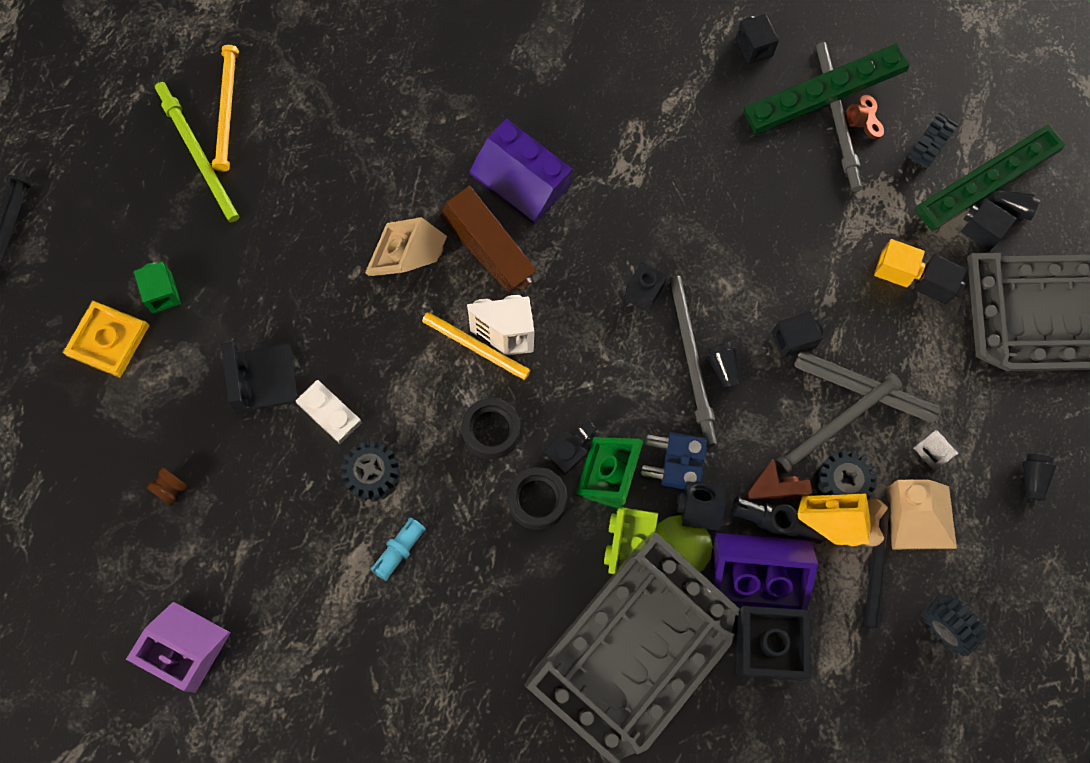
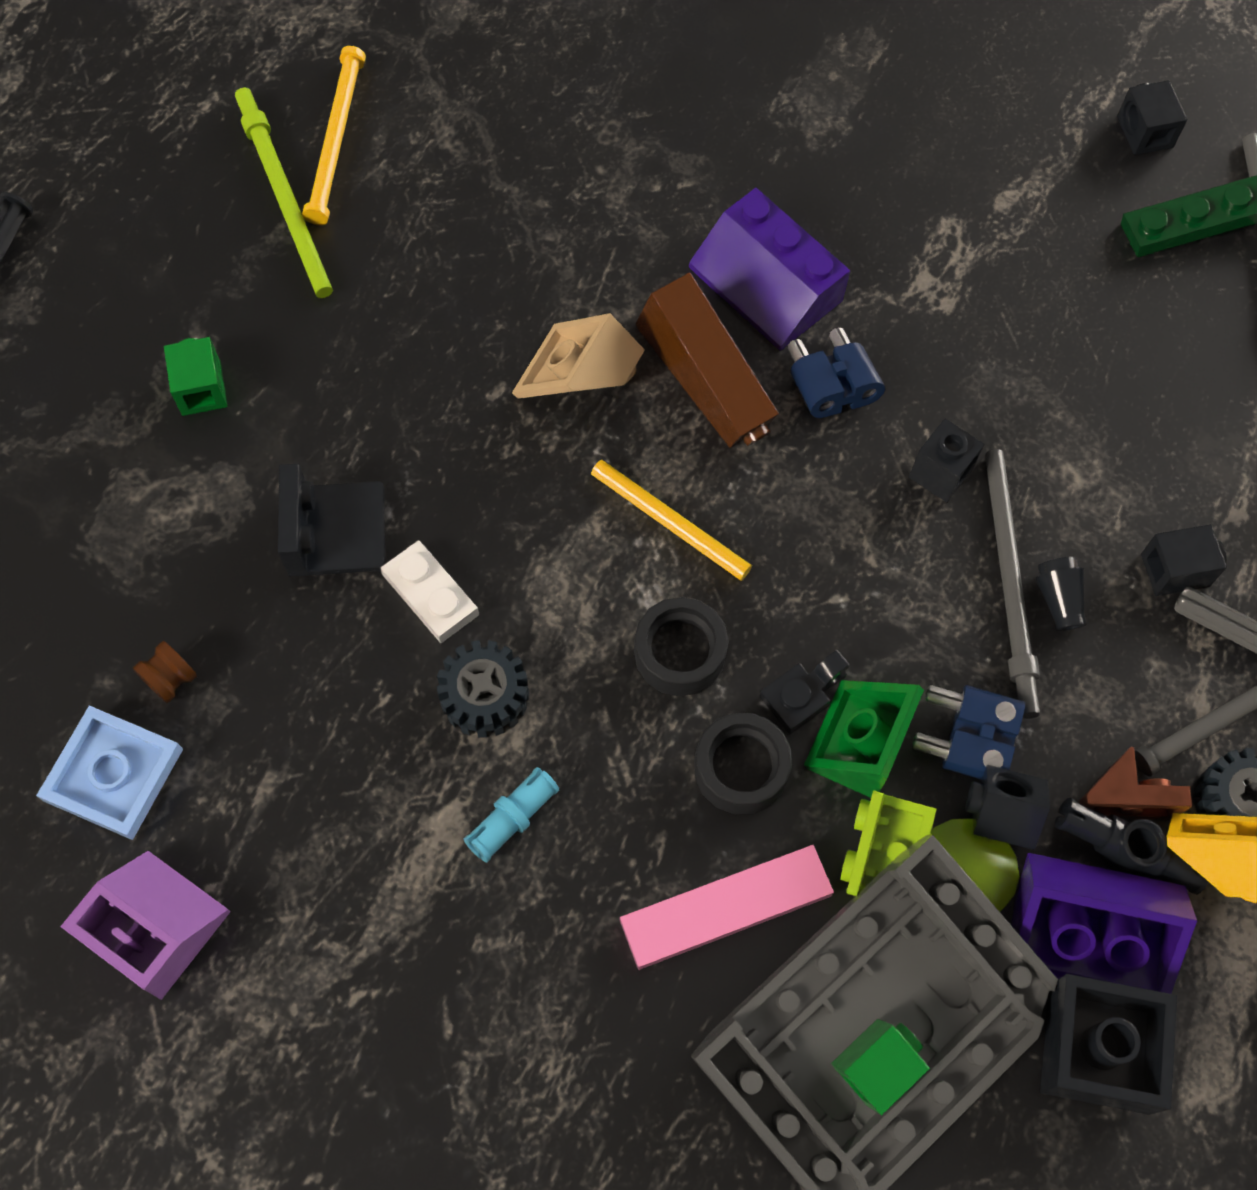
camera: 10 degrees right, 5 degrees down
(106, 339) = (107, 444): yellow tile -> none
(141, 555) = (110, 772): none -> light blue plate
(503, 324) = (718, 487): white slope -> none
(536, 589) = (726, 906): none -> bright pink tile
(572, 240) = (835, 379): none -> dark blue piece
(639, 674) = (882, 1064): none -> green brick

